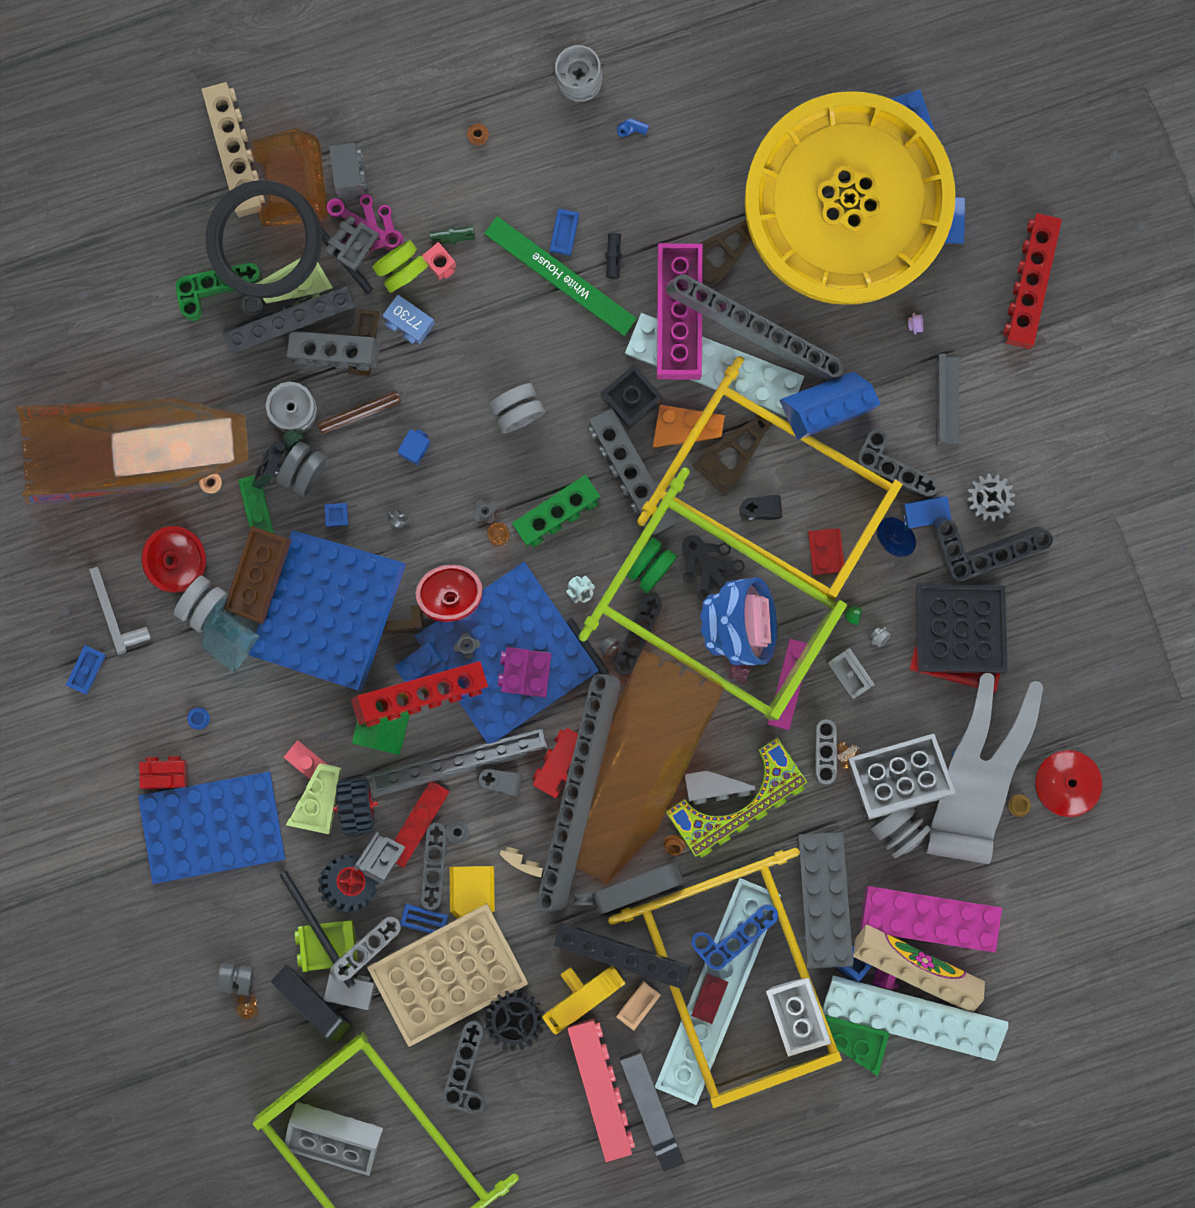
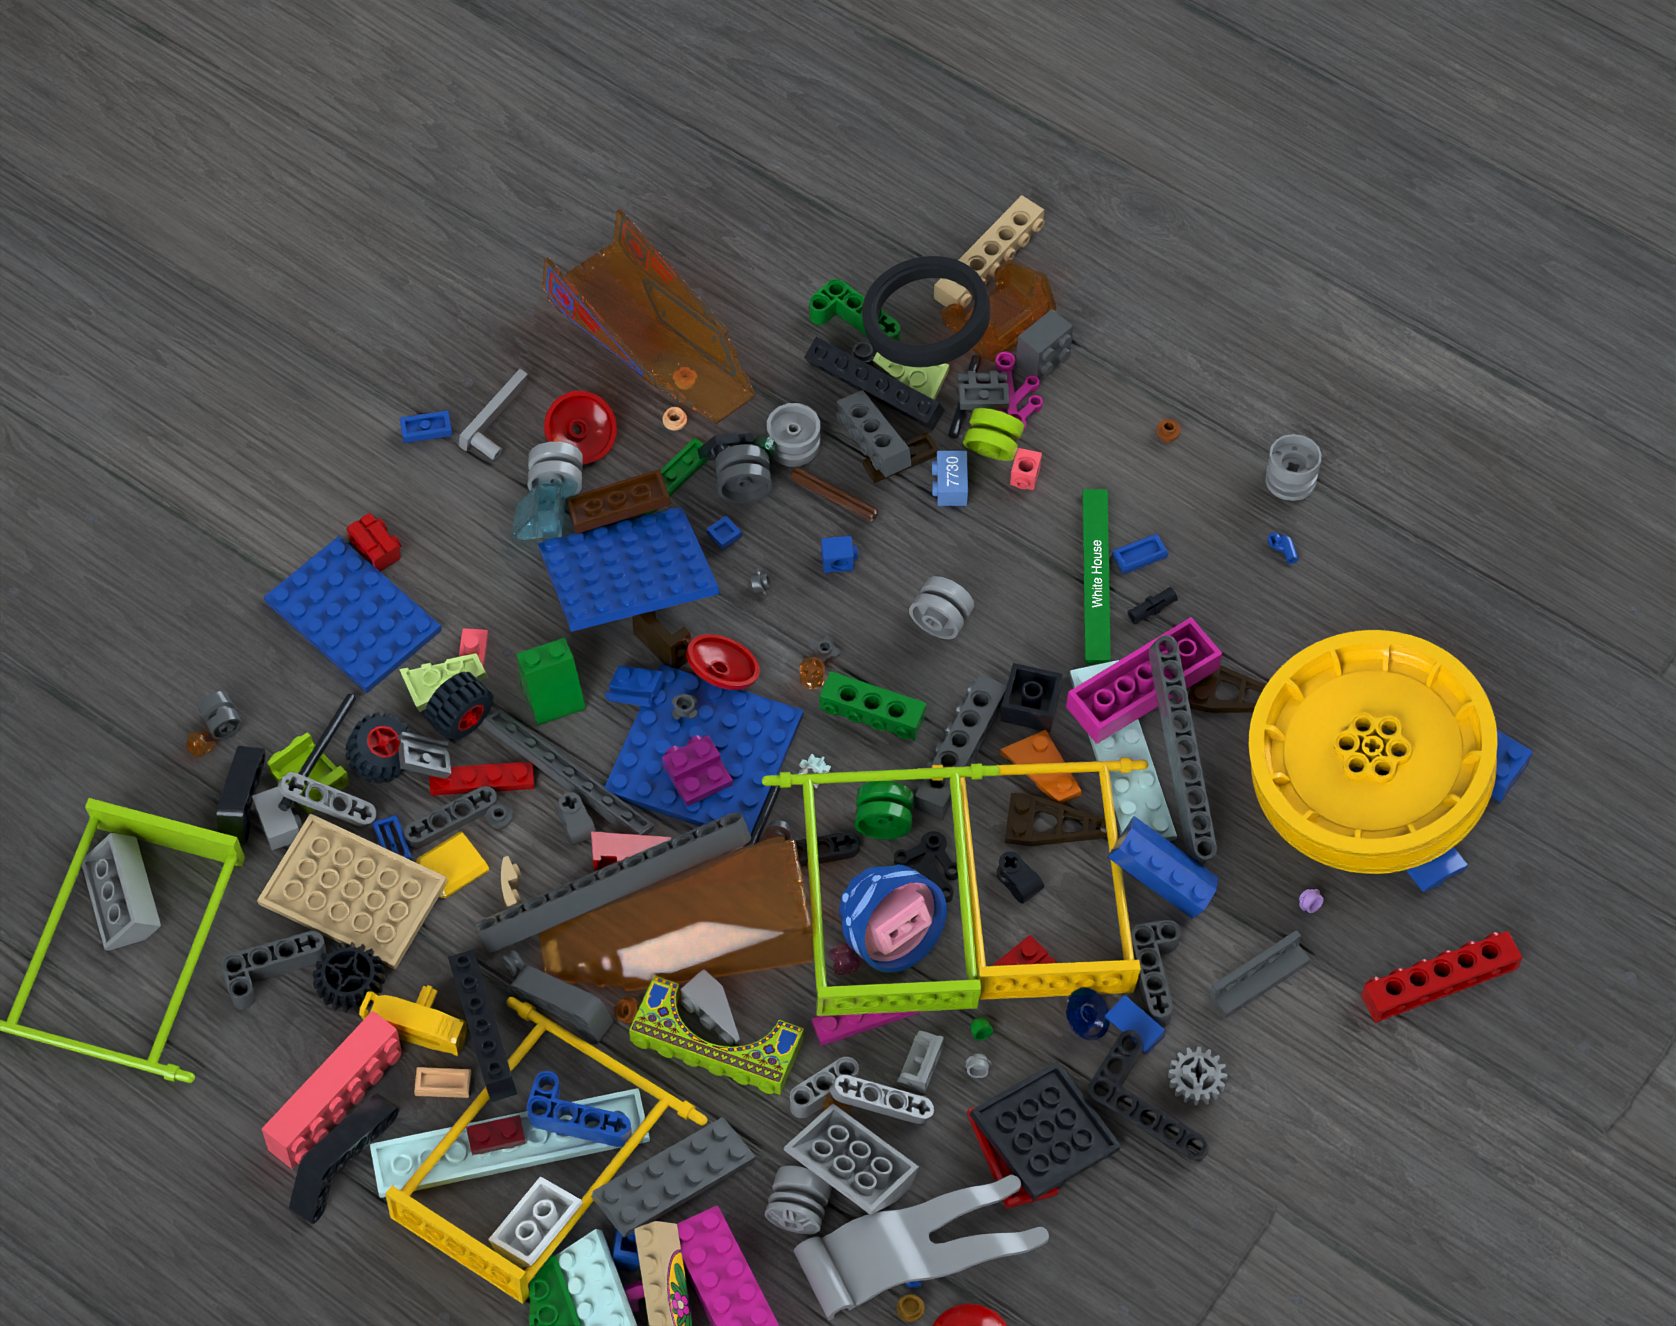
camera: 55 degrees right, 25 degrees down
(198, 718) = (447, 540): blue plate -> none
(365, 704) = (620, 682): red brick -> none
(452, 235) = (1059, 467): dark green pin -> none
(866, 722) = (882, 1096): none -> light grey beam

